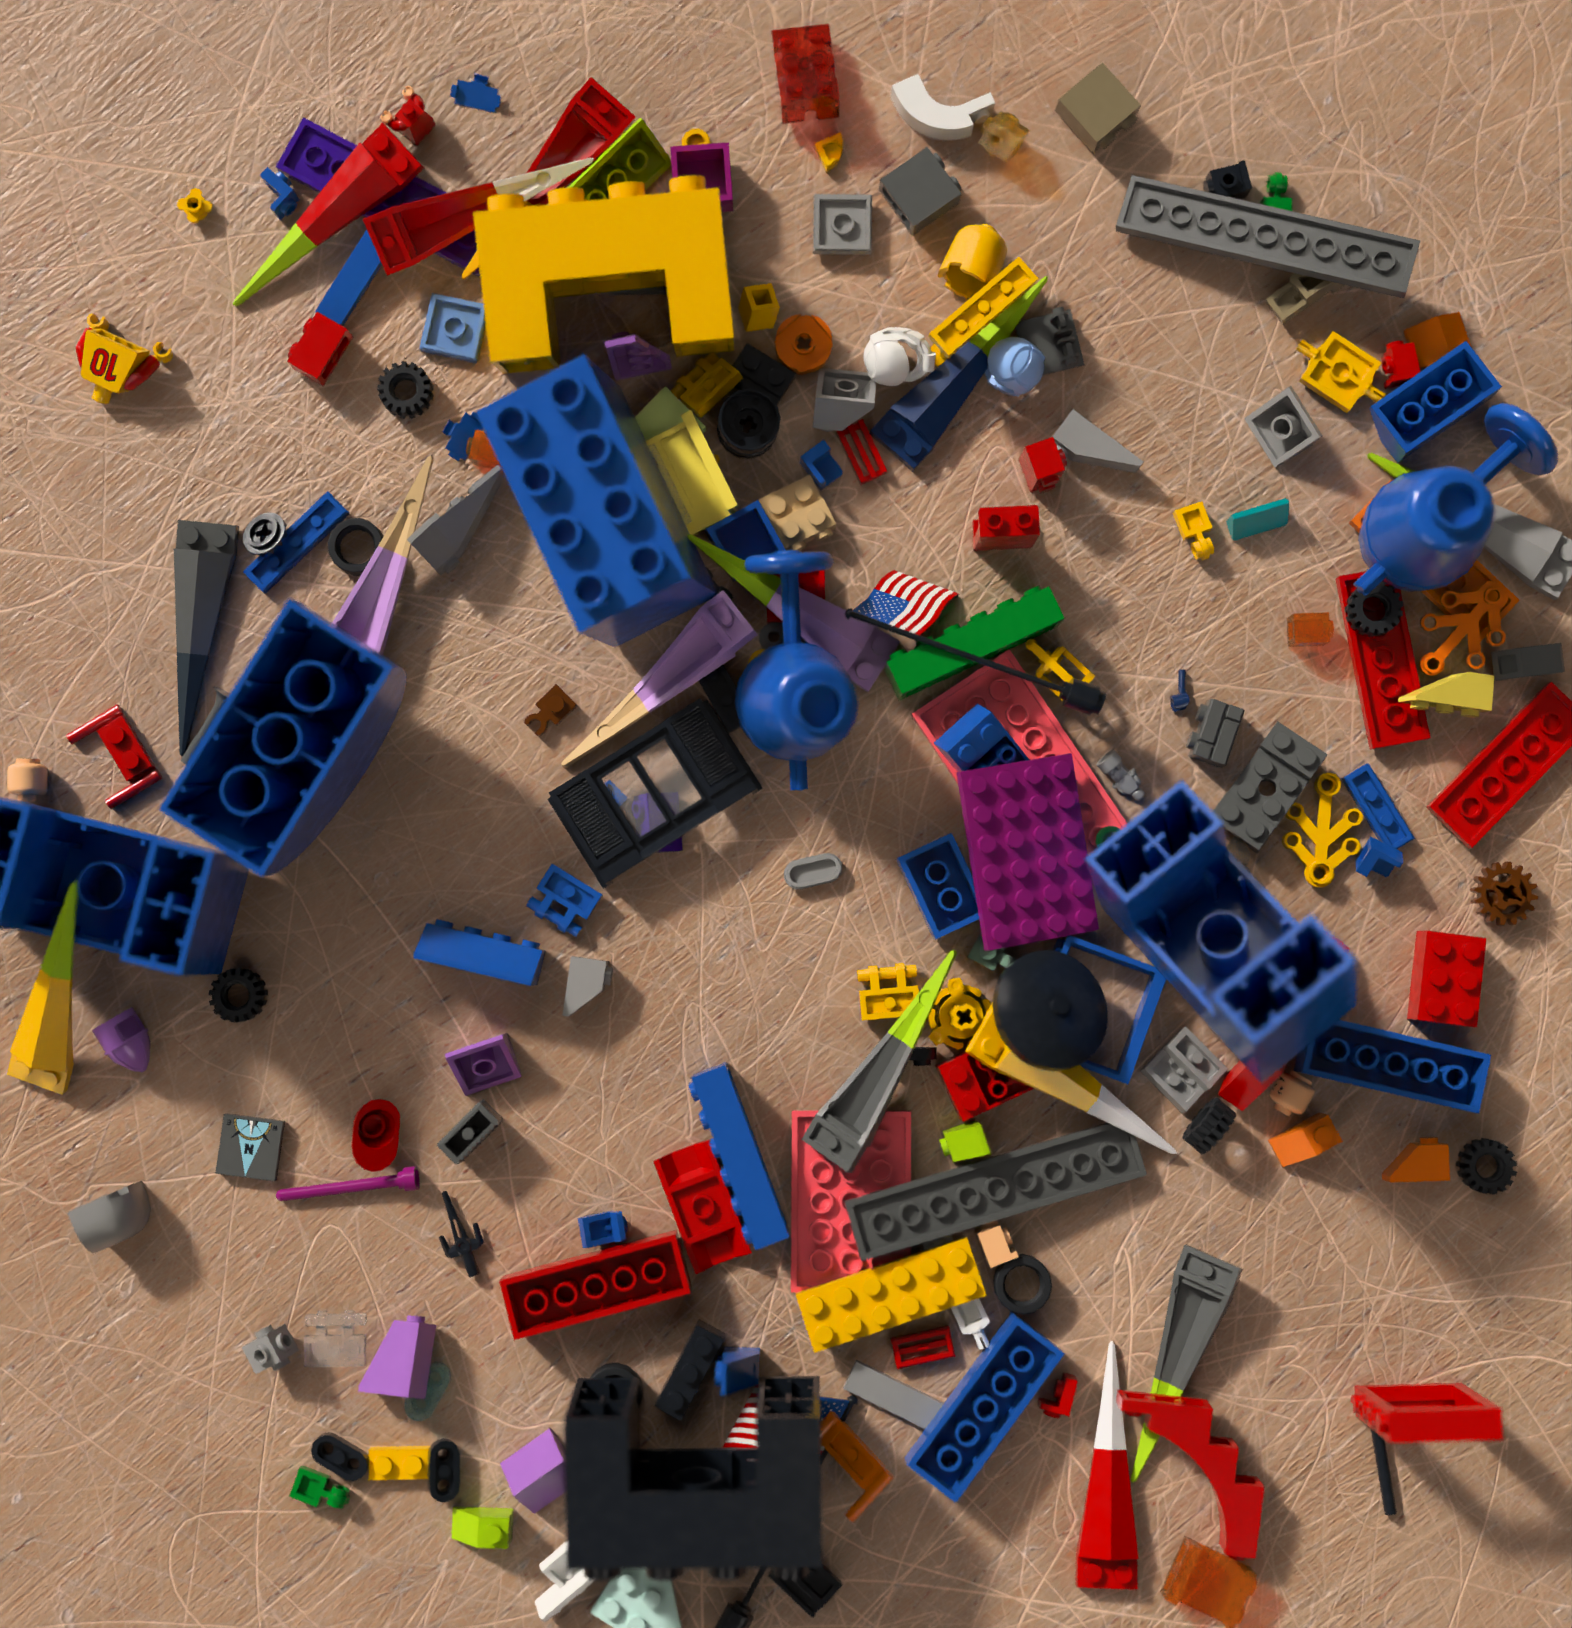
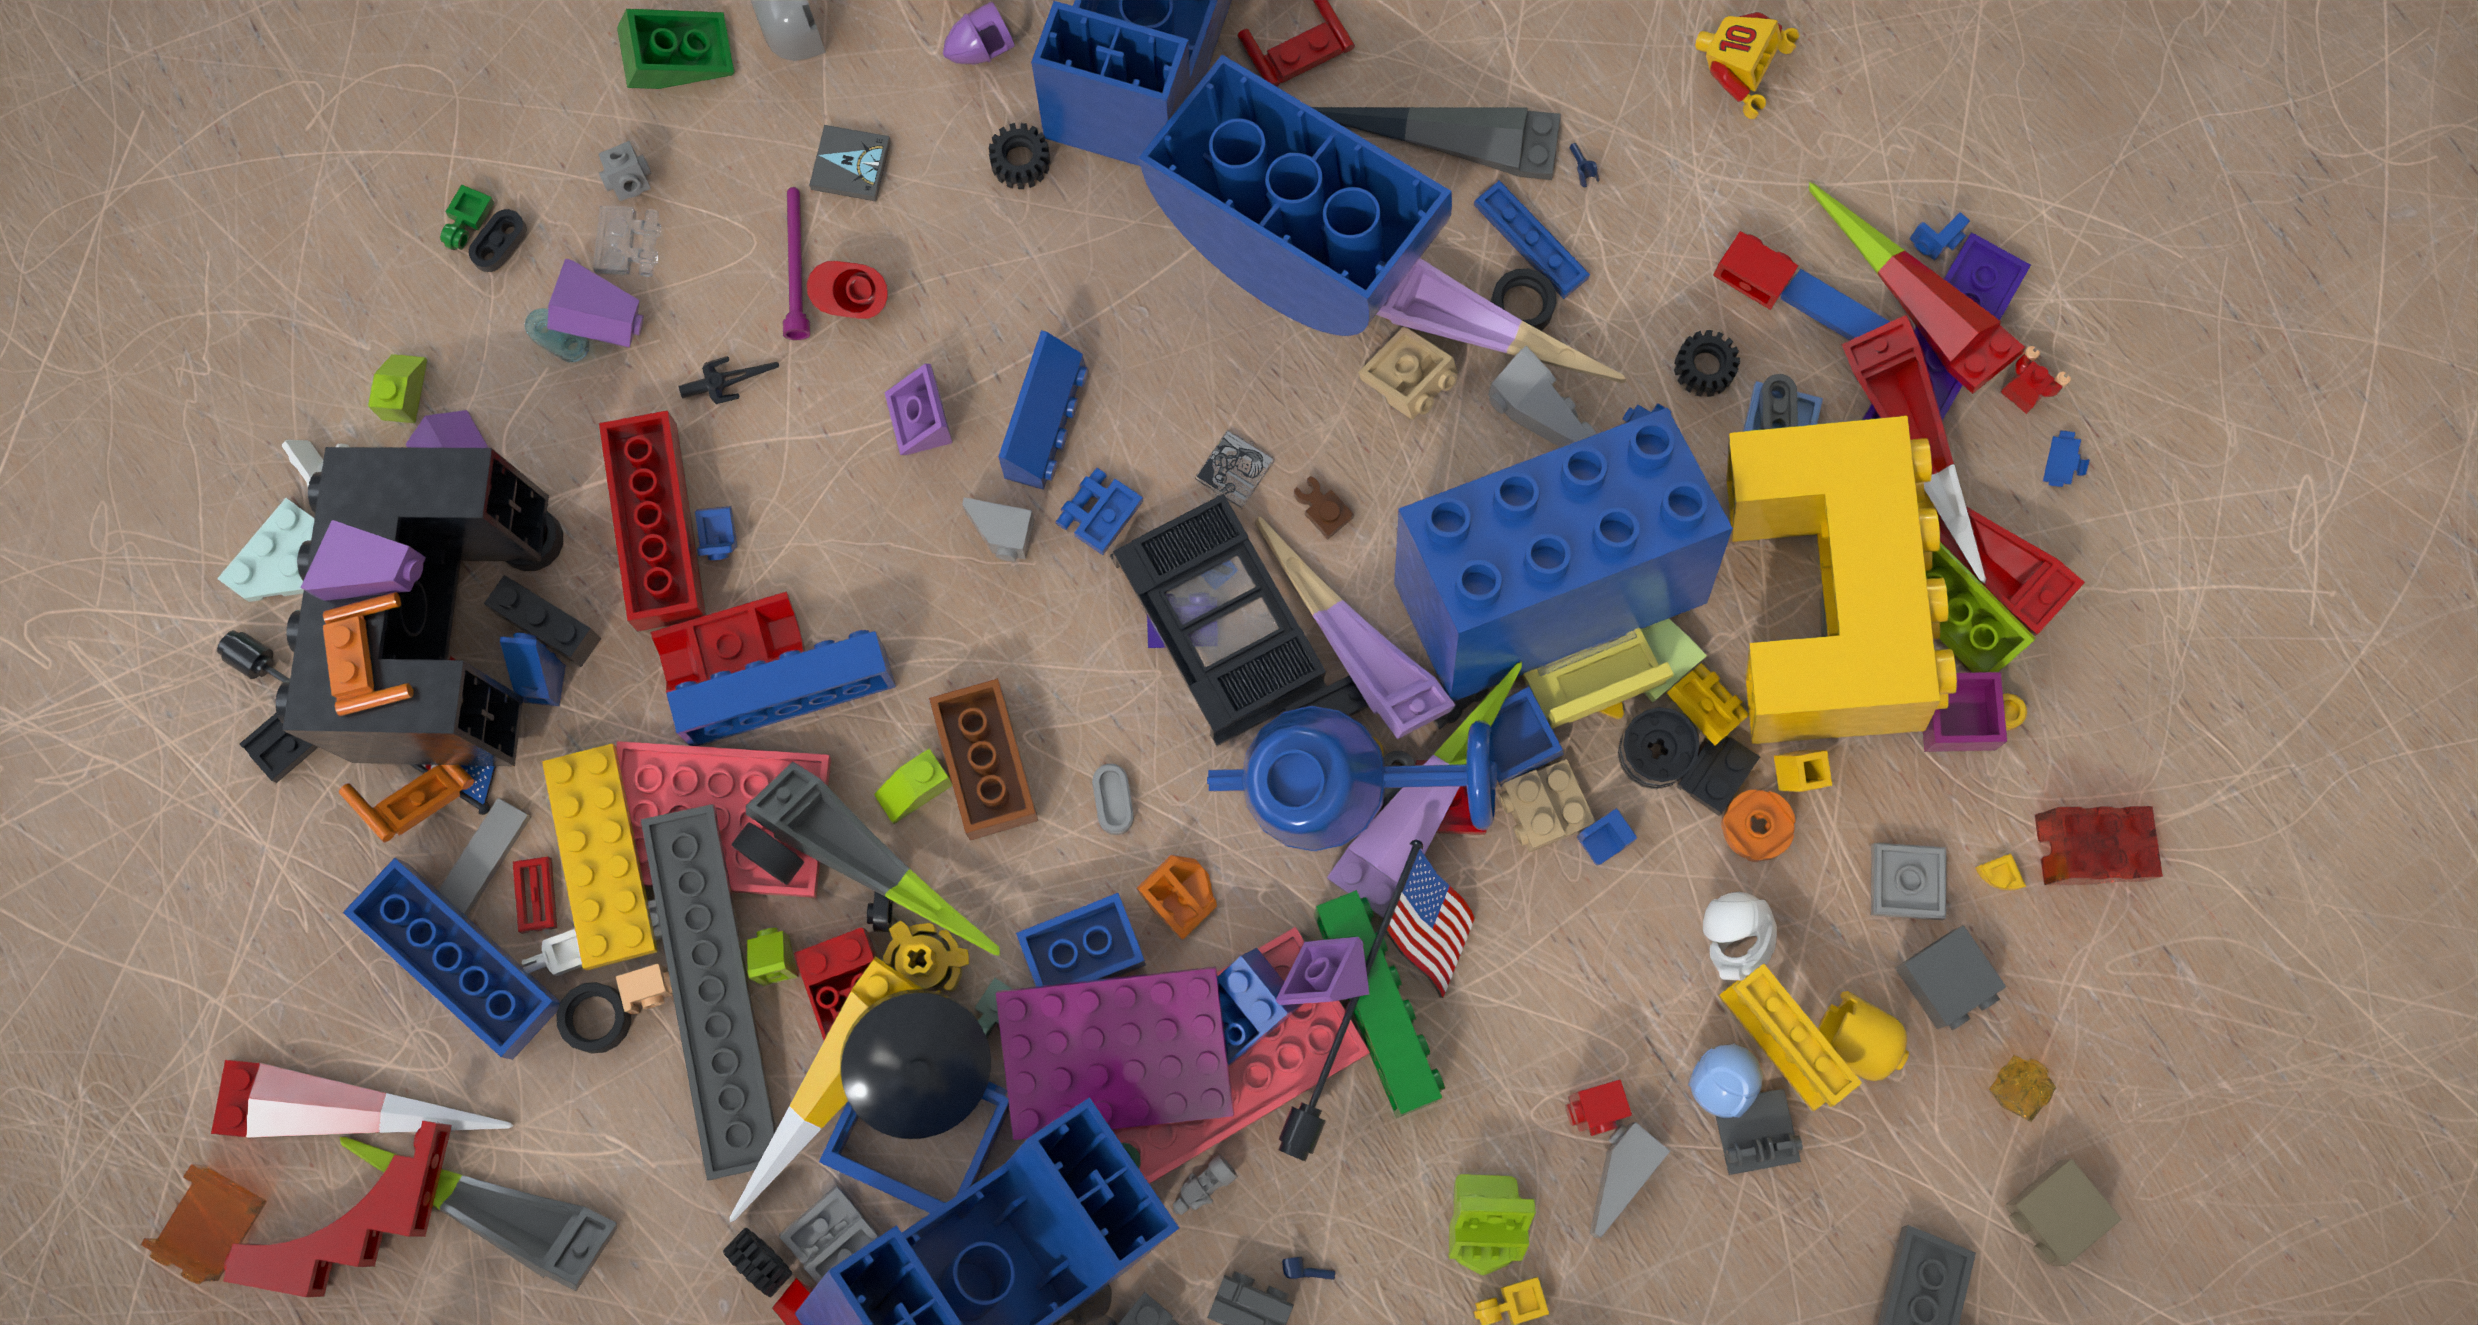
camera: 95 degrees right, 10 degrees down
(145, 1318) = (673, 47): none -> green slope
(198, 213) = (1921, 154): yellow plate -> none
(228, 497) = (1585, 168): none -> dark blue hand
(259, 527) = (1550, 200): gear -> none
(398, 1463) = (482, 303): yellow plate -> none
(427, 641) = (1410, 373): none -> tan plate
(444, 1469) = (468, 349): black plate -> none
(447, 327) = (1774, 410): none -> dark grey plate
(470, 1132) = (840, 391): dark grey brick -> none
(519, 787) = (1234, 469): none -> piece
(634, 356) = (1743, 614): medium lavender wedge -> none
(676, 1518) = (360, 565): none -> medium lavender slope
(756, 1516) = (350, 657): none -> orange plate
(789, 979) = (983, 759): none -> dark orange brick
(814, 1038) = (912, 786): none -> lime slope
(842, 398) = (1689, 864): light grey slope -> none
(872, 447) = (1650, 877): red tile -> none
(884, 1150) = (768, 853): none -> black tyre
(886, 1002) = (948, 875): yellow plate -> none
(890, 809) = (1179, 894): none -> orange slope
(924, 413) = (1673, 971): dark blue plate -> none
(936, 119) = (2043, 1006): white arch -> none
(959, 682) = (1326, 972): none -> medium lavender slope
(1006, 528) = (1520, 1052): red panel -> none
(1050, 662) = (1348, 1104): yellow piece -> none
(1064, 1392) = (459, 1059): red bracket -> none
(1134, 549) = (1489, 1222): none -> lime piece

